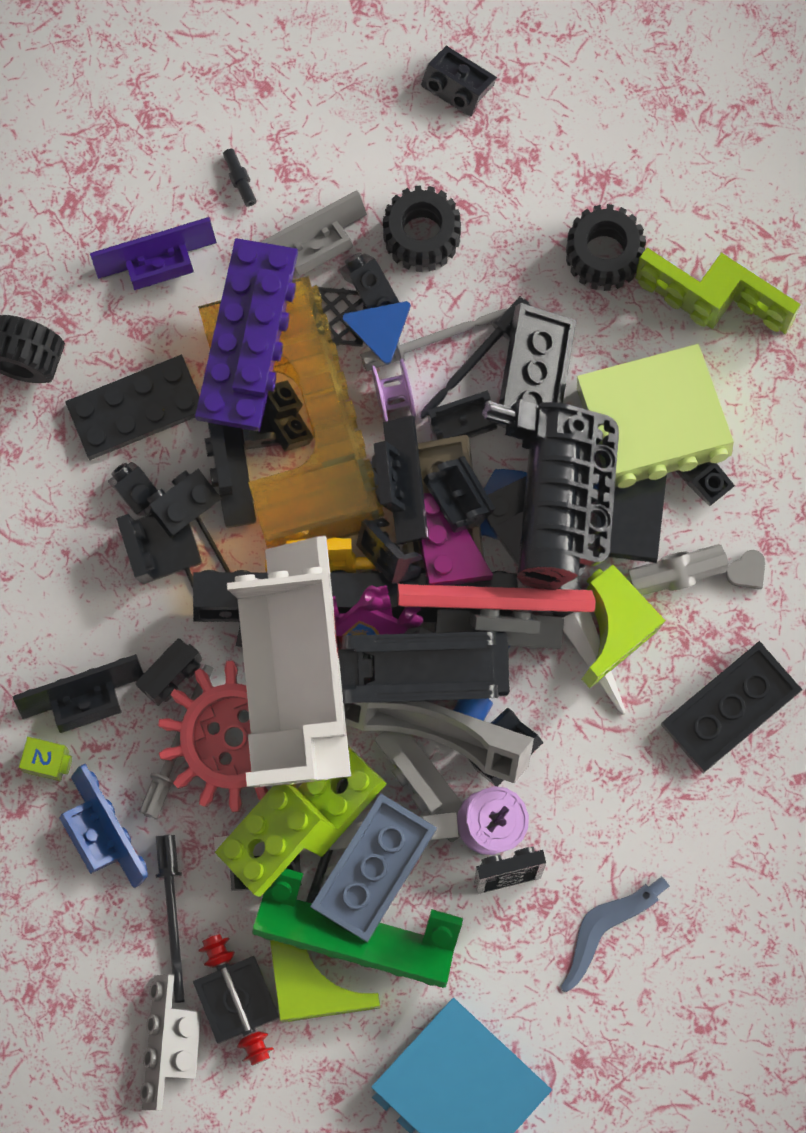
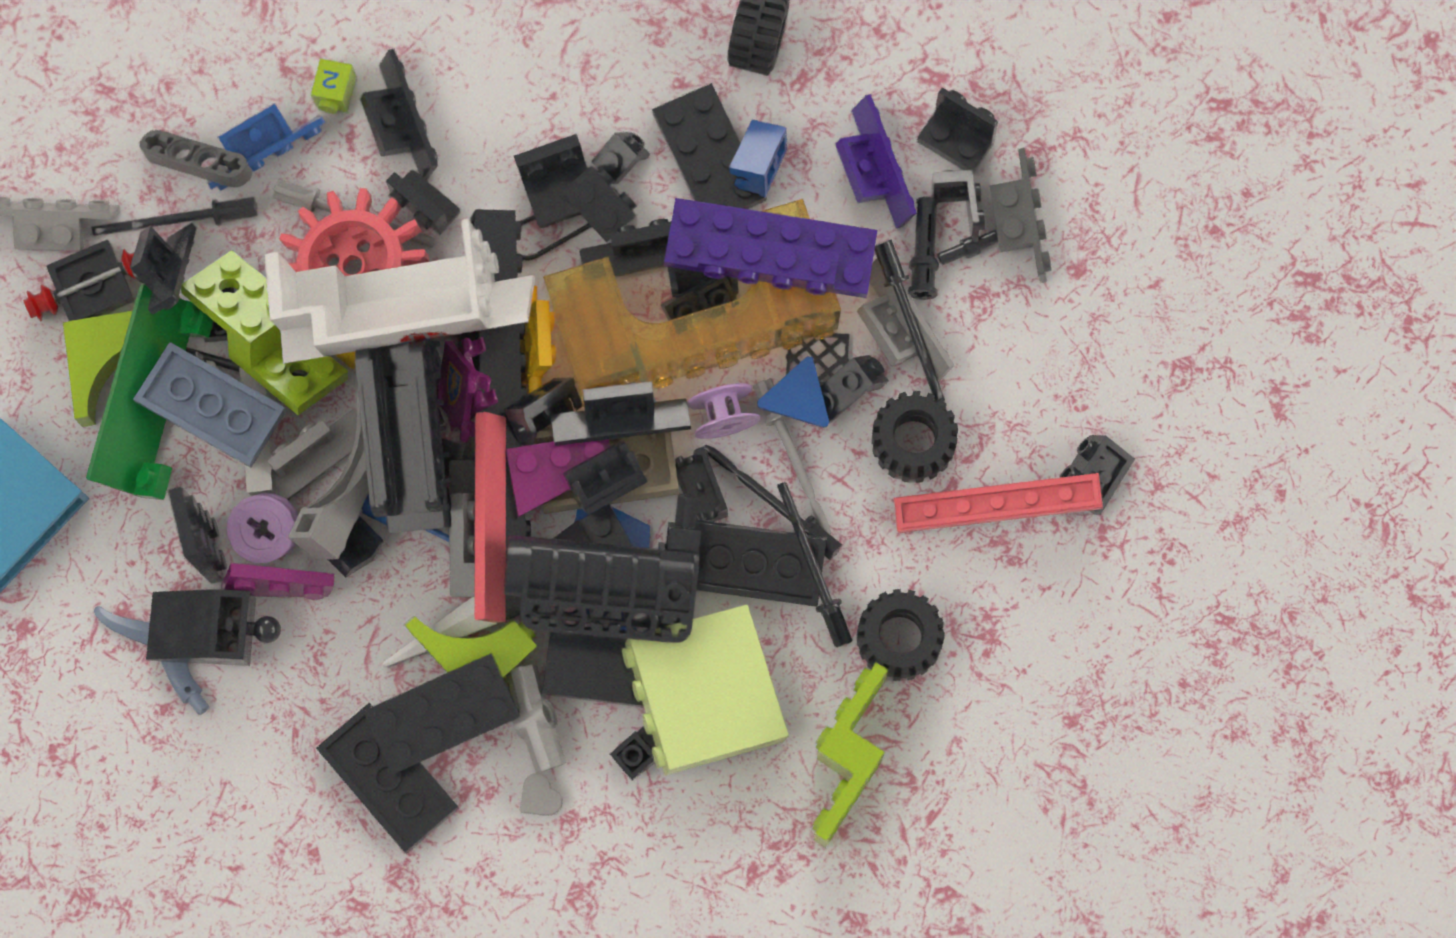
camera: 90 degrees right, 0 degrees up
(119, 894) = (198, 153): none -> dark grey beam
(129, 179) = (959, 131): none -> black bracket
(144, 355) = (759, 156): none -> hinge
(182, 178) = (960, 186): none -> black bracket
(214, 132) = (1017, 218): none -> dark grey bracket
(232, 911) = (162, 264): none -> black bracket
(253, 216) = (924, 263): none -> black pin
(275, 232) = (894, 277): none -> black piece
(486, 159) = (998, 503): none -> coral tile
(547, 806) = (278, 582): none -> magenta wing
(577, 307) = (830, 608): none -> black piece
(585, 884) = (200, 627): none -> black slope
(677, 648) = (442, 713): none -> black plate

